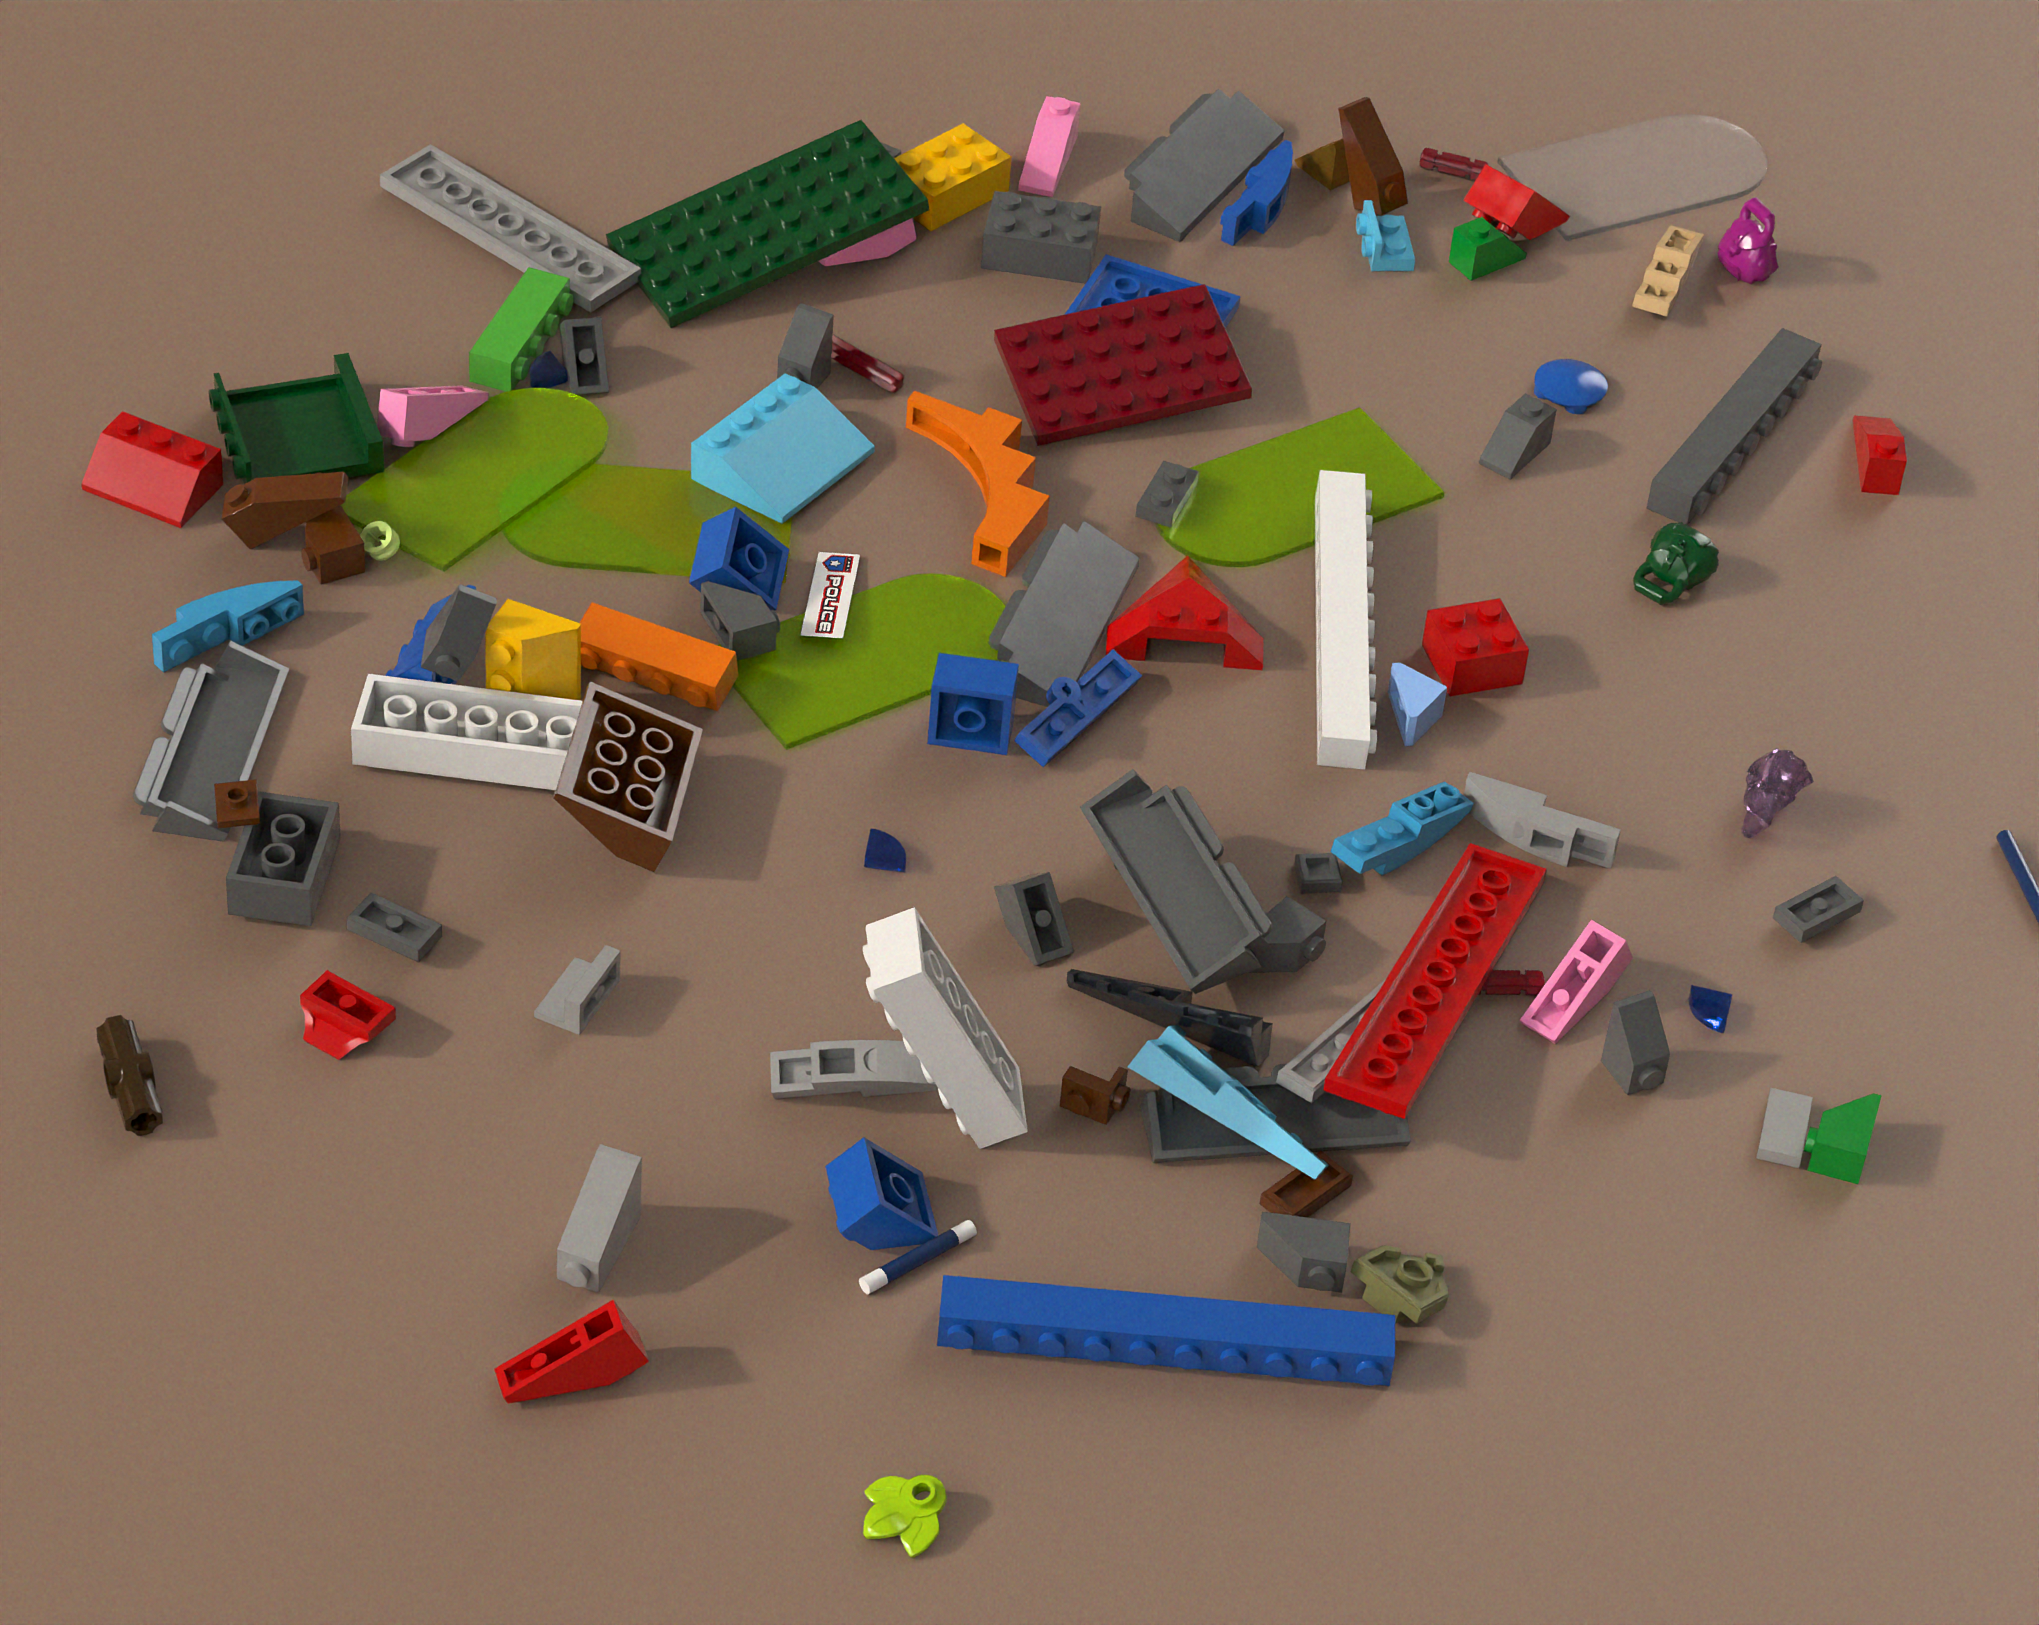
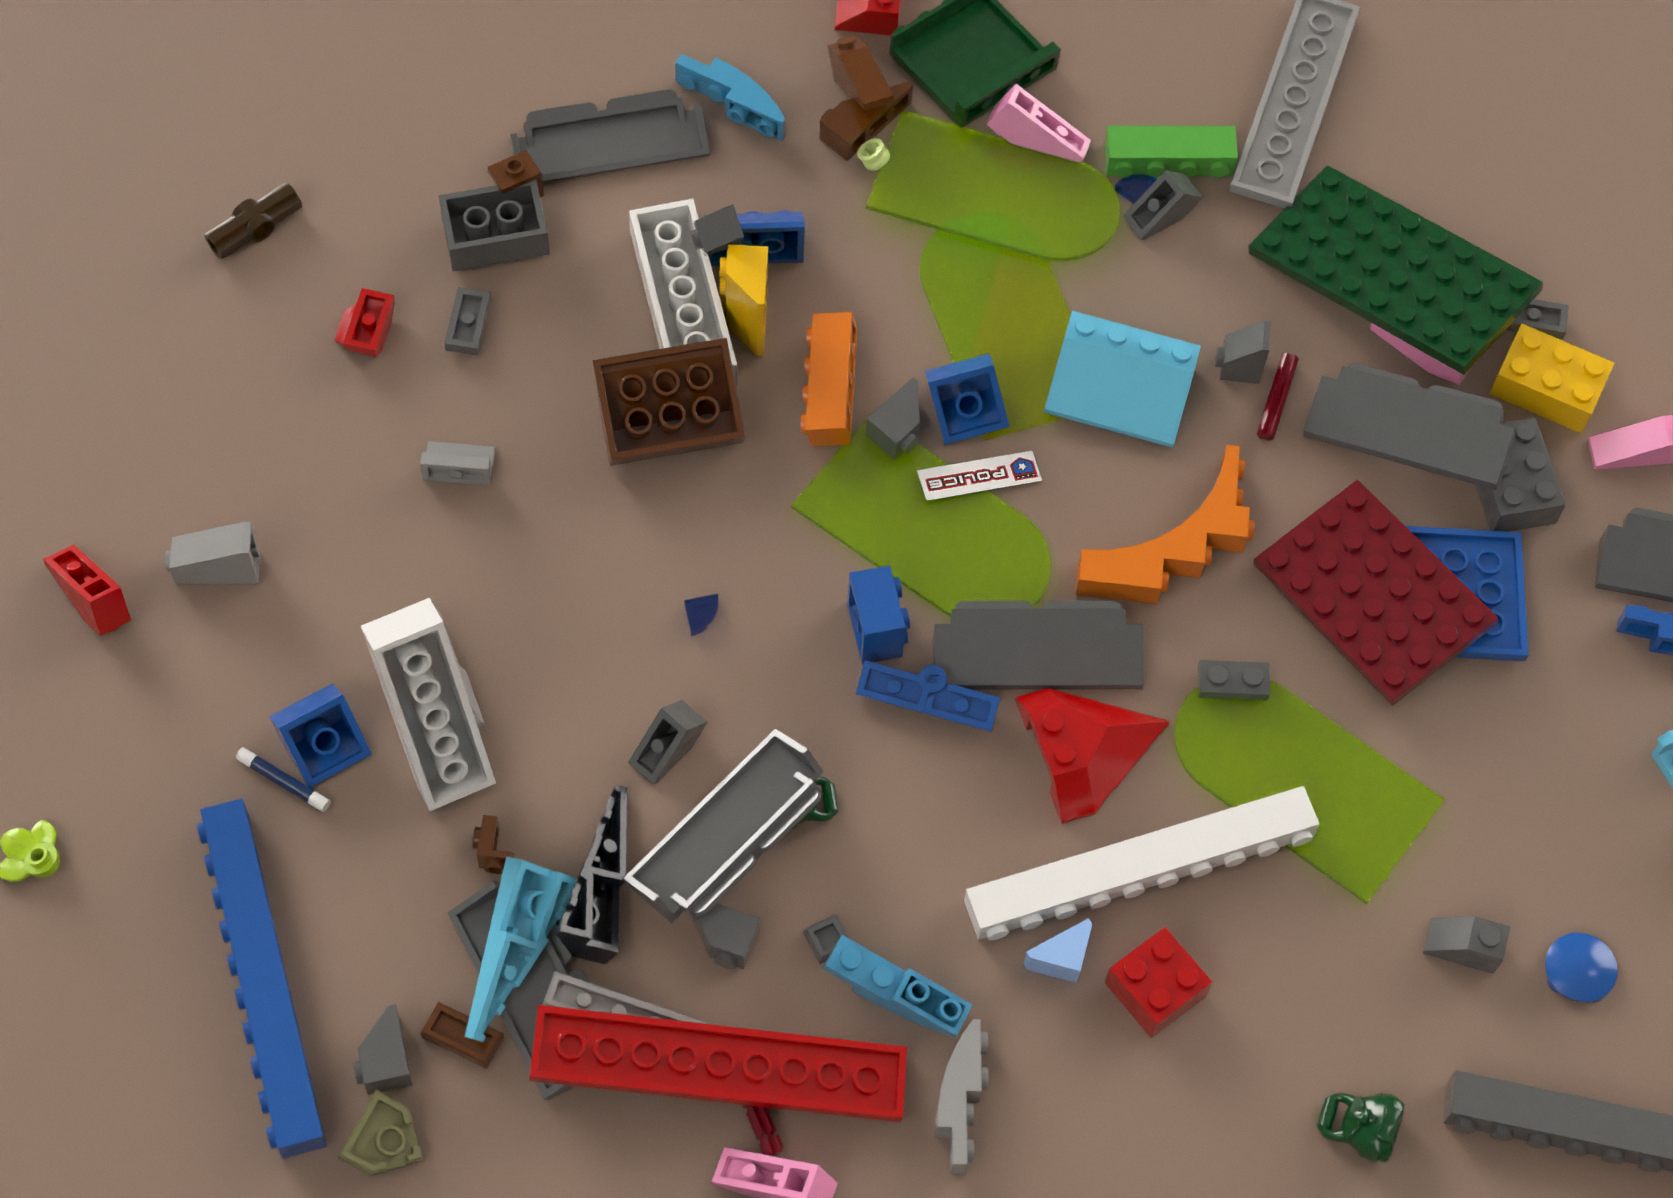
camera: 70 degrees right, 20 degrees up
(957, 269) = (1413, 425): none -> dark grey slope

